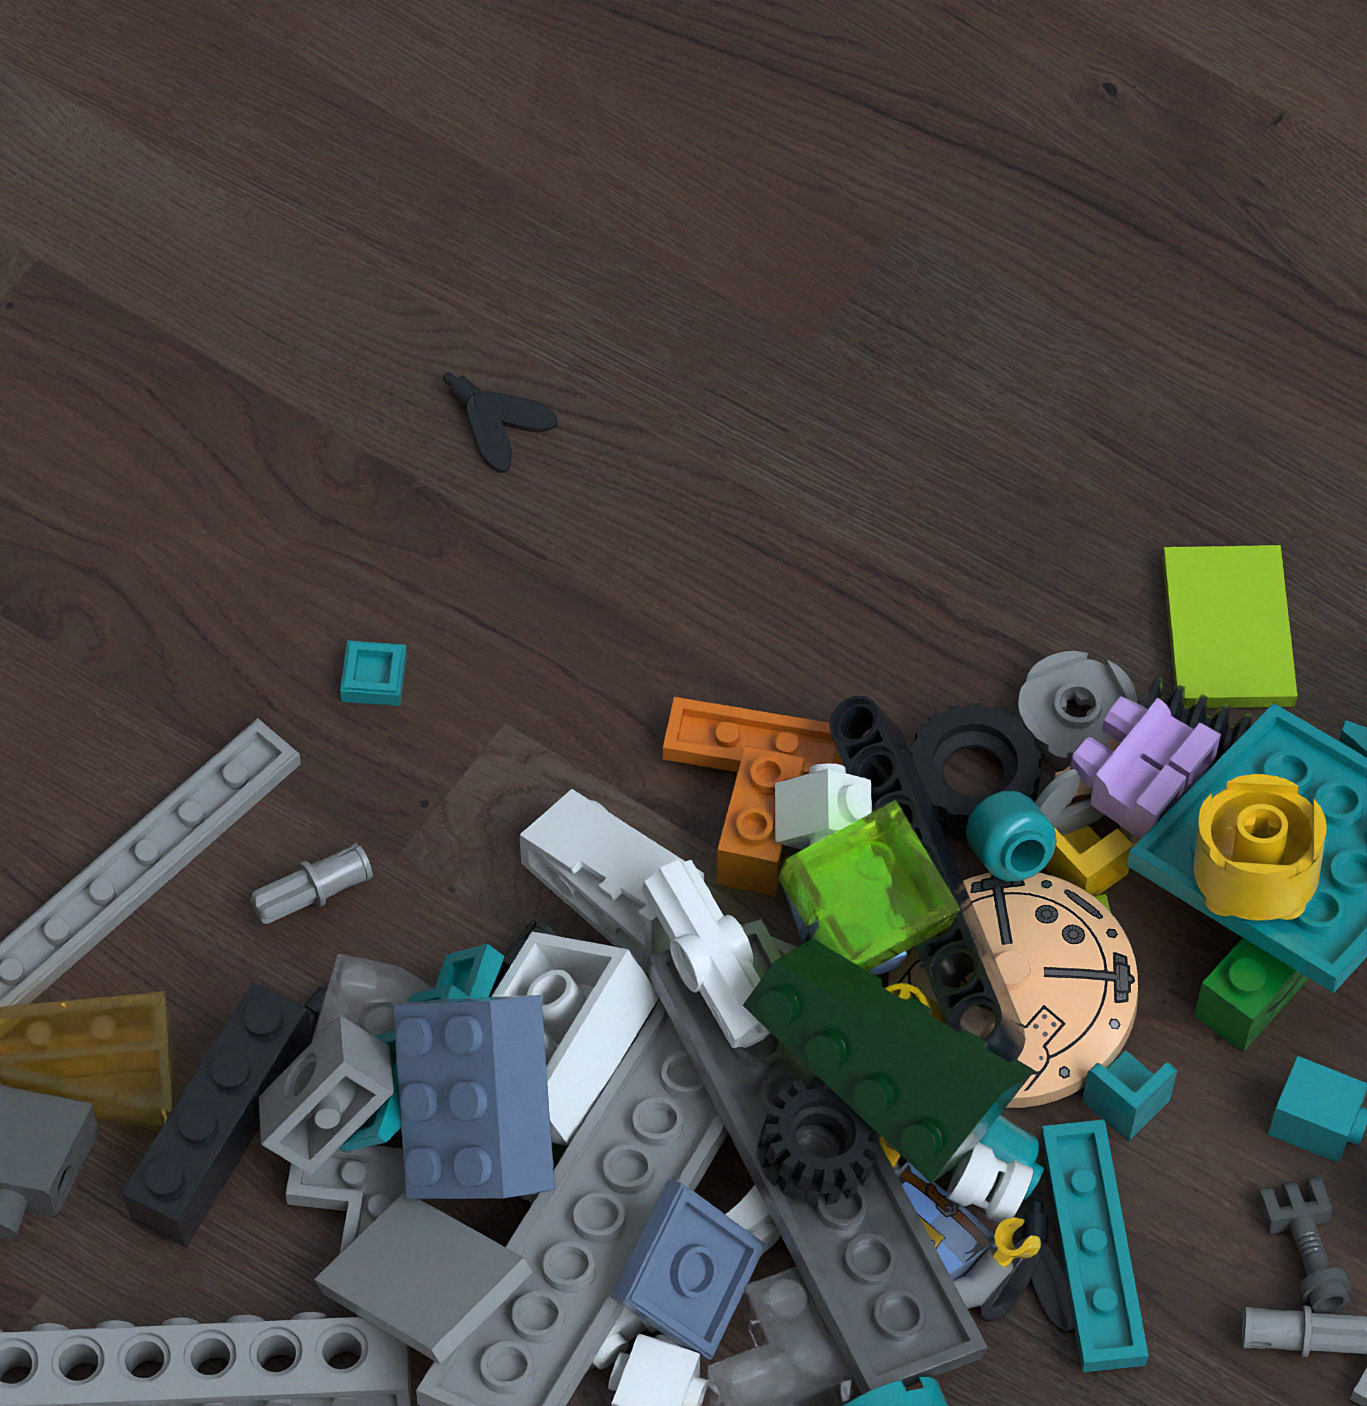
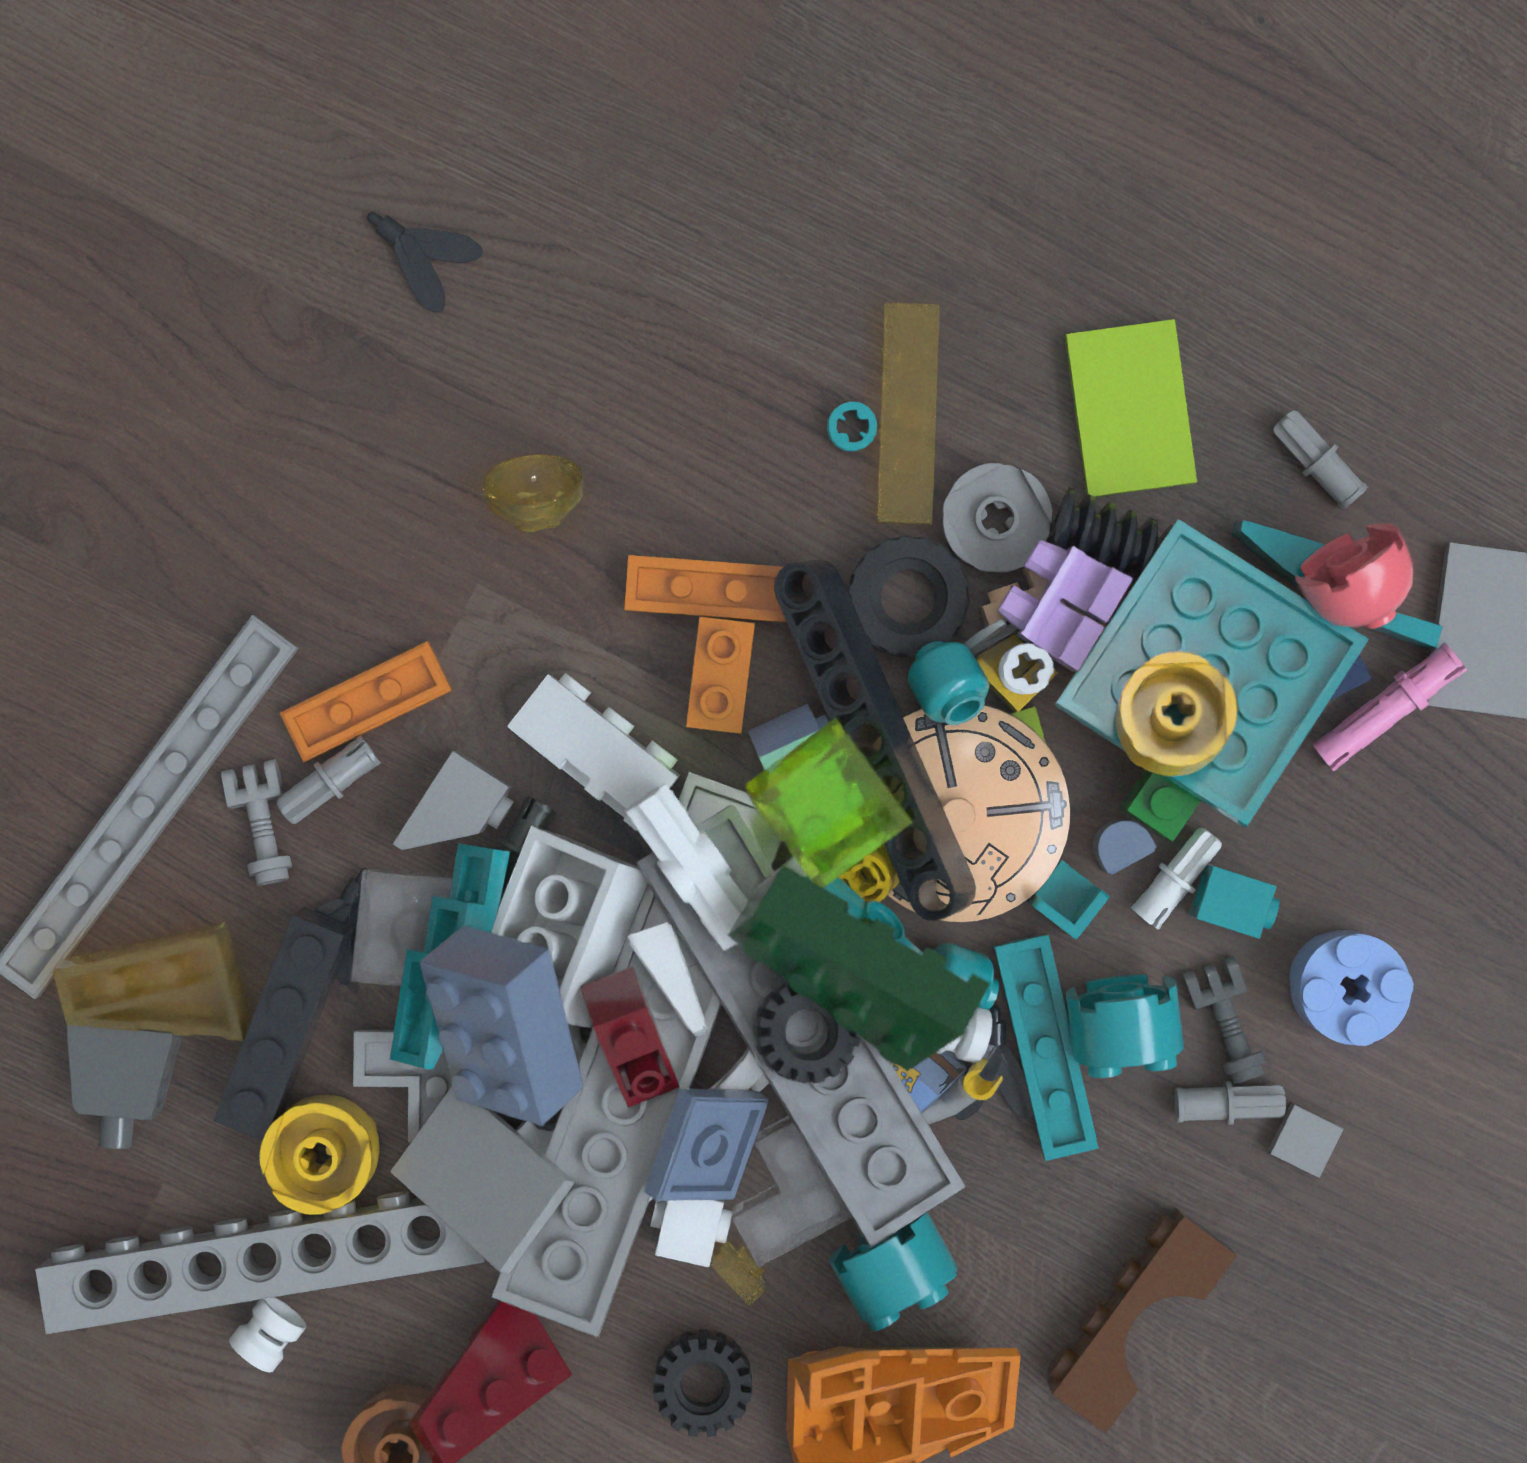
camera: 10 degrees left, 30 degrees up
(208, 1245) = (292, 1168): none -> yellow brick
(230, 961) = (269, 867): none -> light grey hinge
(325, 1095) = (373, 1023): light grey brick -> none
(367, 816) = (366, 701): none -> orange tile
(373, 673) = (350, 550): teal tile -> none
(447, 915) = (457, 804): none -> light grey slope
(581, 631) = (534, 491): none -> clear yellow piece
(616, 1136) = (629, 1036): none -> dark red slope
(664, 1069) = (664, 960): none -> white slope
(819, 804) = (778, 686): white brick -> none
(941, 603) = (862, 412): none -> teal bush
(989, 605) = (908, 413): none -> clear yellow tile
(1103, 821) = (1039, 677): none -> white bush
(1187, 1212) = (1125, 1024): none -> teal brick
(1196, 1036) = (1120, 845): none -> sand blue brick
(1255, 1083) = (1177, 878): none -> white axle

